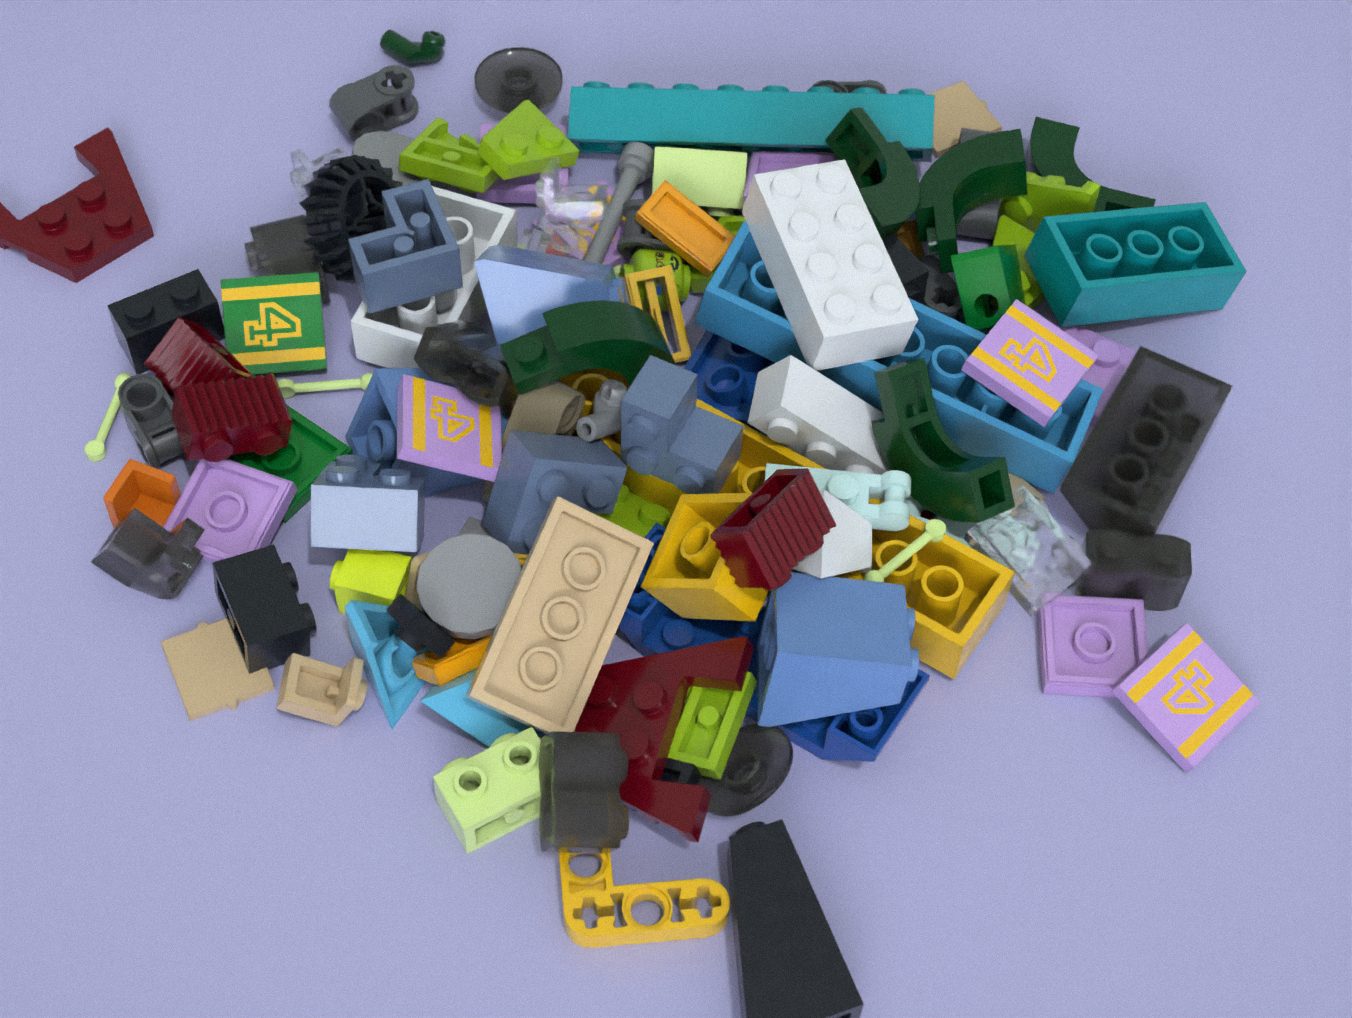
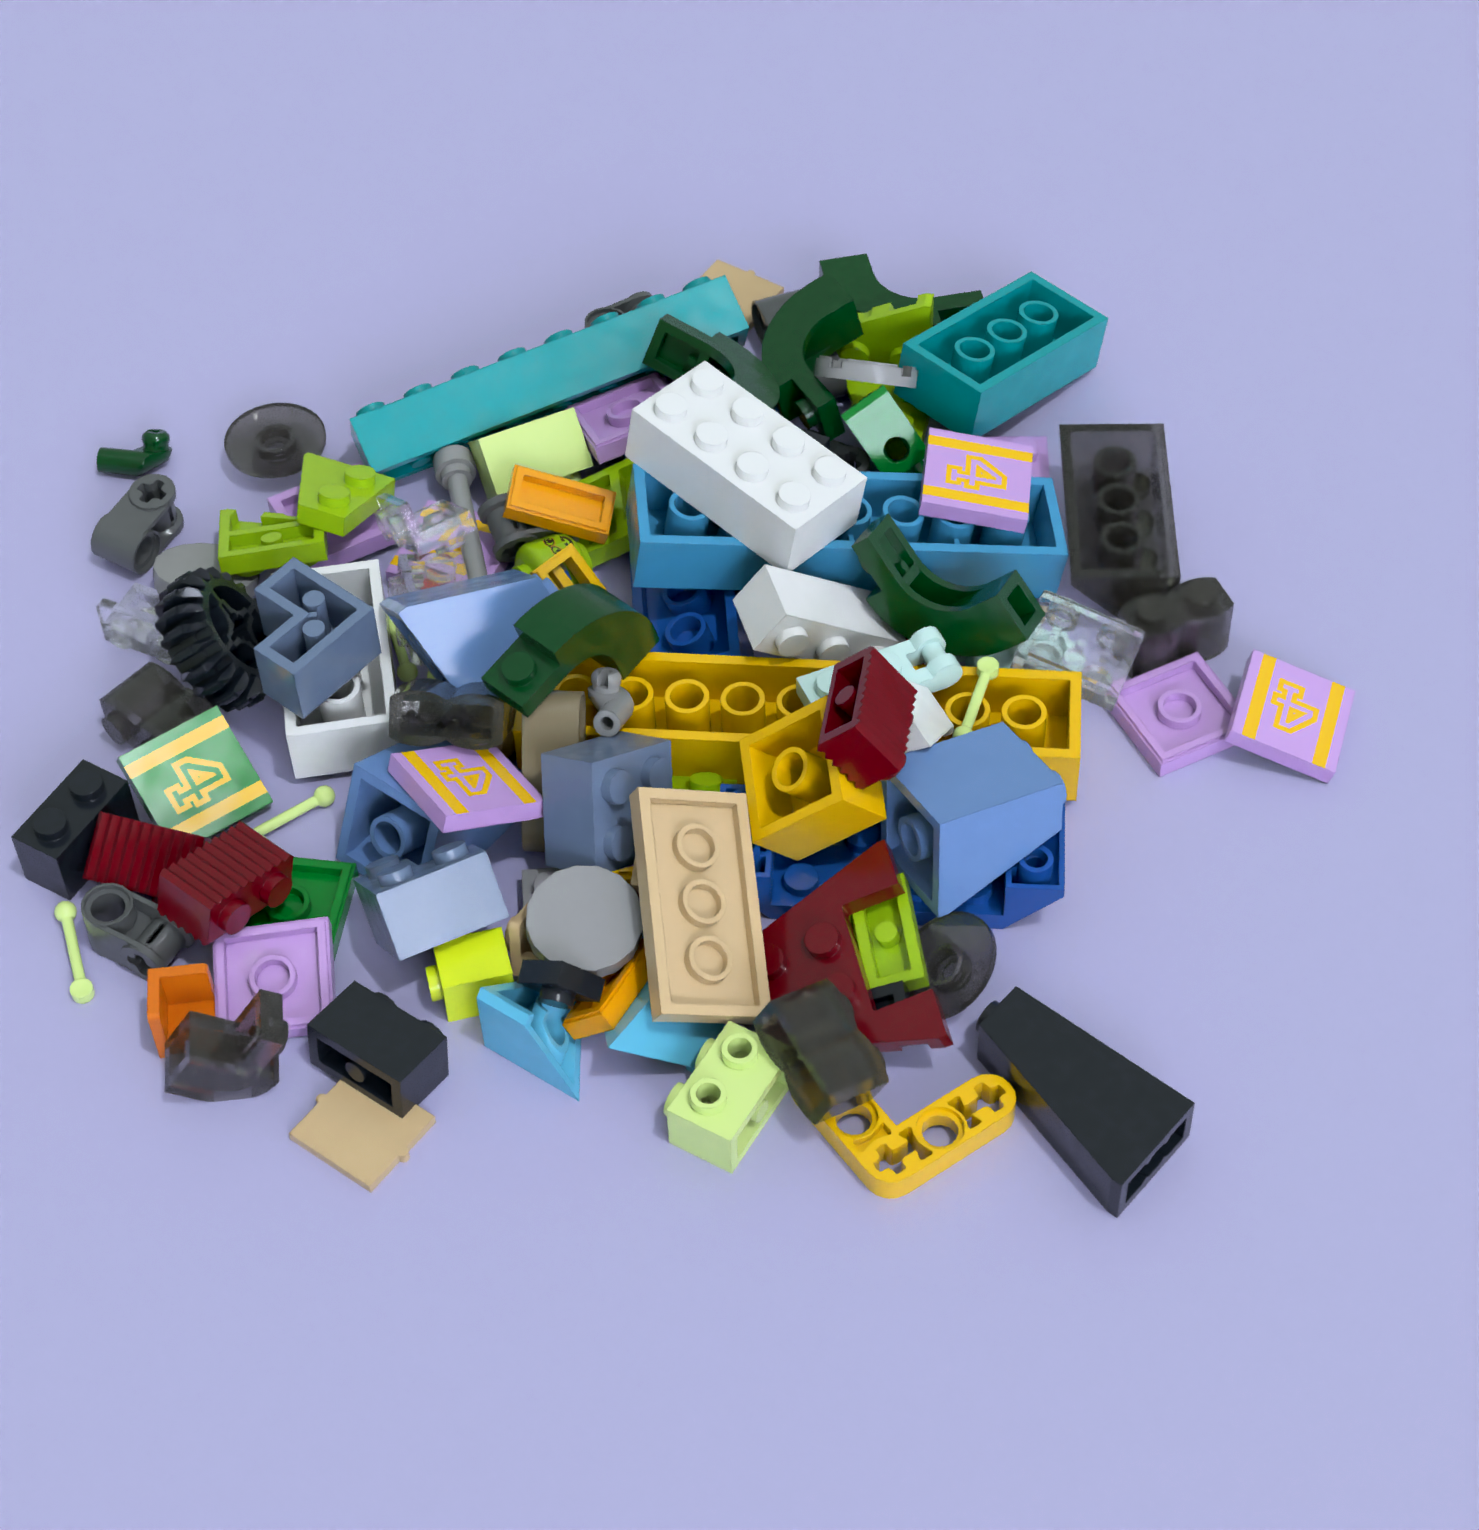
camera: 25 degrees left, 5 degrees down
(321, 689) = (493, 1093): tan bracket -> none
(671, 435) = (696, 691): sand blue brick -> none
(998, 228) = (866, 371): none -> light grey tile

